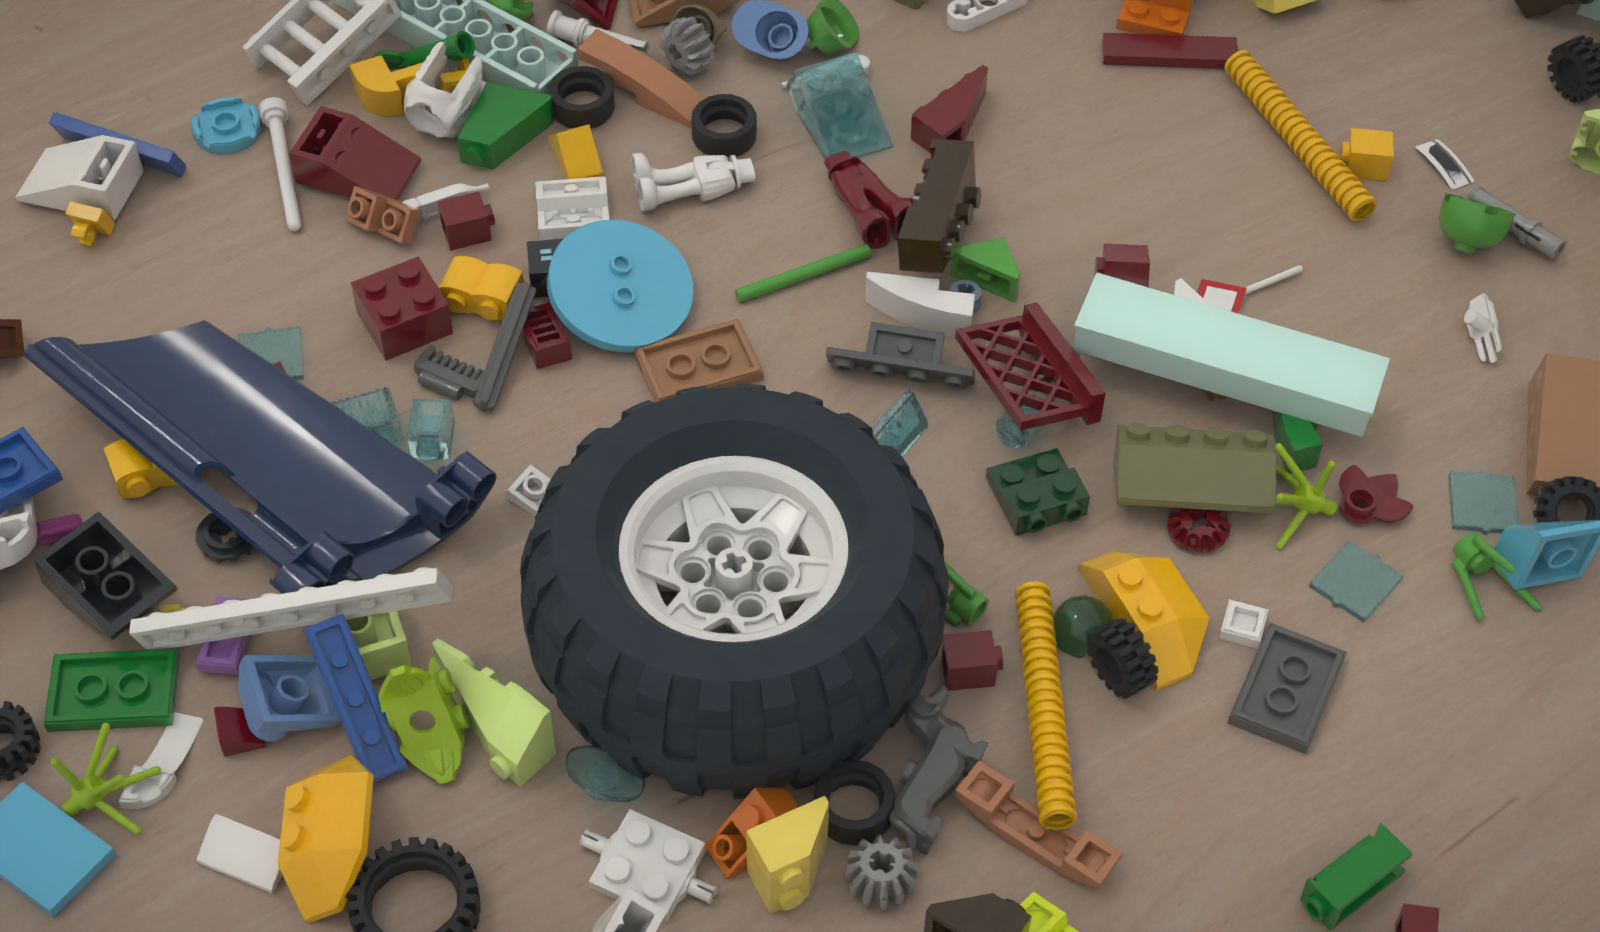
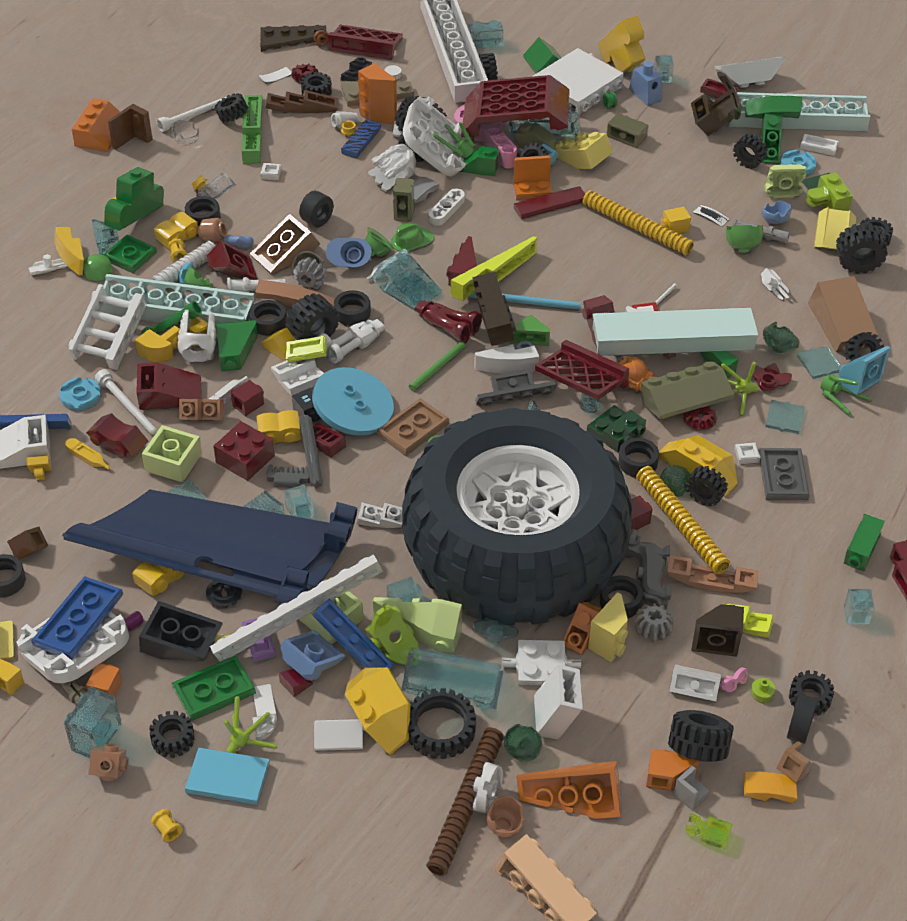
camera: 25 degrees left, 5 degrees down
(172, 225) = (85, 453): none -> yellow piece
(228, 215) = (117, 436): none -> dark red brick
(288, 272) = (172, 453): none -> yellowish green brick
(479, 818) = (469, 676): none -> clear light blue windscreen
(498, 649) = (405, 590): none -> clear light blue brick
(600, 171) = (306, 349): none -> neon yellow tile
(635, 120) = (312, 317): none -> black tyre
(897, 36) = (411, 237): none -> bright green piece
(999, 135) = (502, 265): none -> neon yellow slope
(1040, 217) = (539, 301): none -> medium azure bar
(1047, 535) = (637, 445): none -> black tyre
(1128, 401) = (637, 372): none -> orange hair
(1428, 433) = (780, 338): none -> clear green hair
(1564, 200) = (778, 213): none -> medium blue hair

